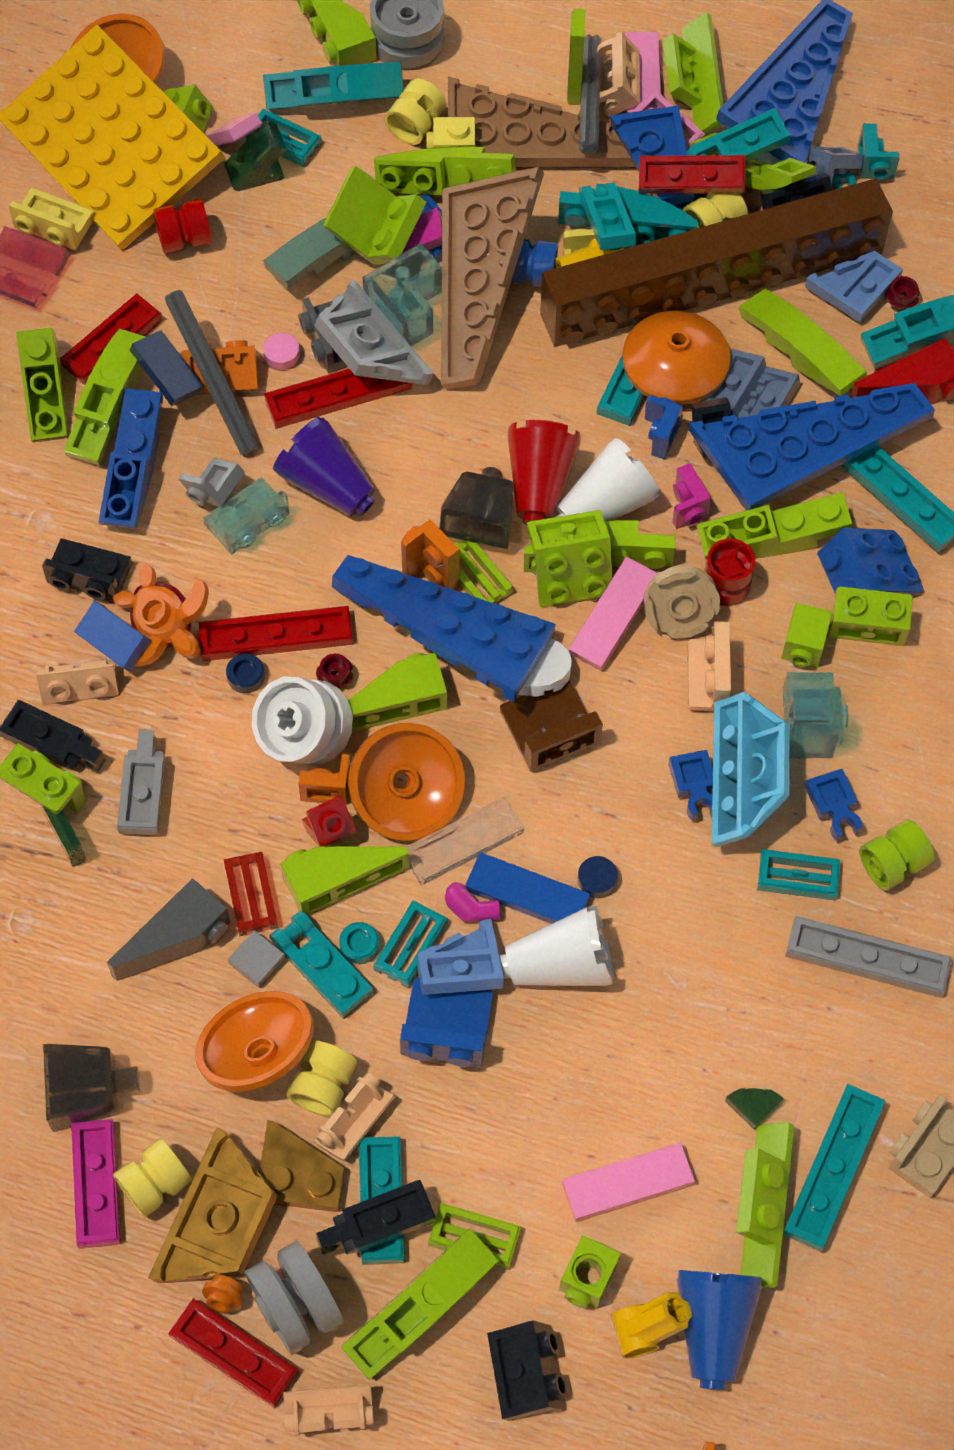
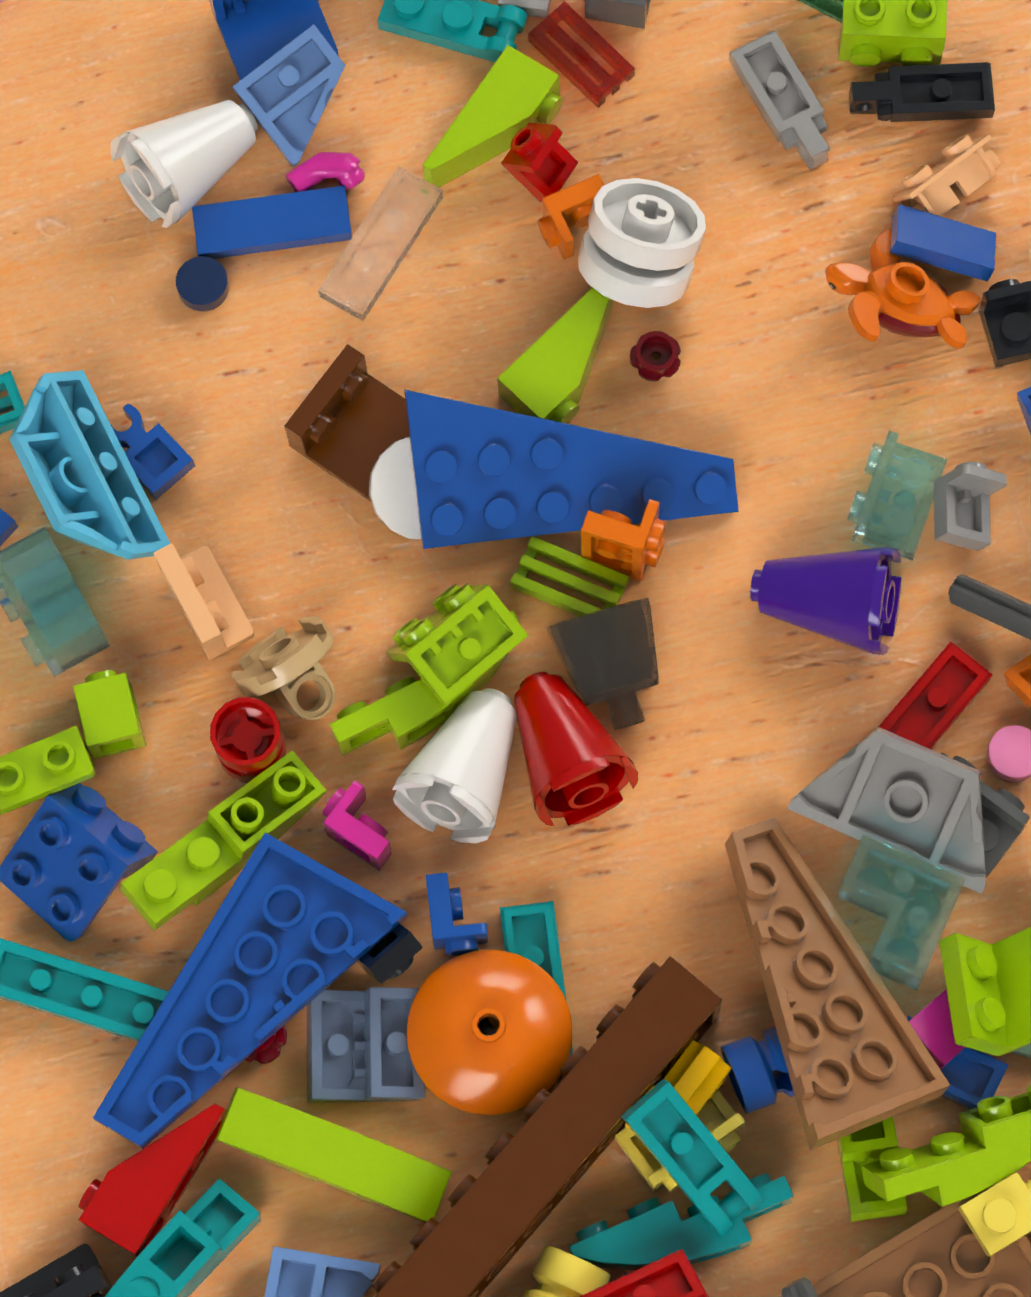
camera: 155 degrees right, 10 degrees up
(245, 673) = (761, 300): dark blue tile -> none
(275, 633) = (759, 369): red tile -> none
(359, 943) = (426, 67): teal tile -> none
(394, 972) = (369, 135): teal tile -> none
(432, 786) = (478, 248): orange dish -> none
(612, 614) = (363, 613): bright pink tile -> none

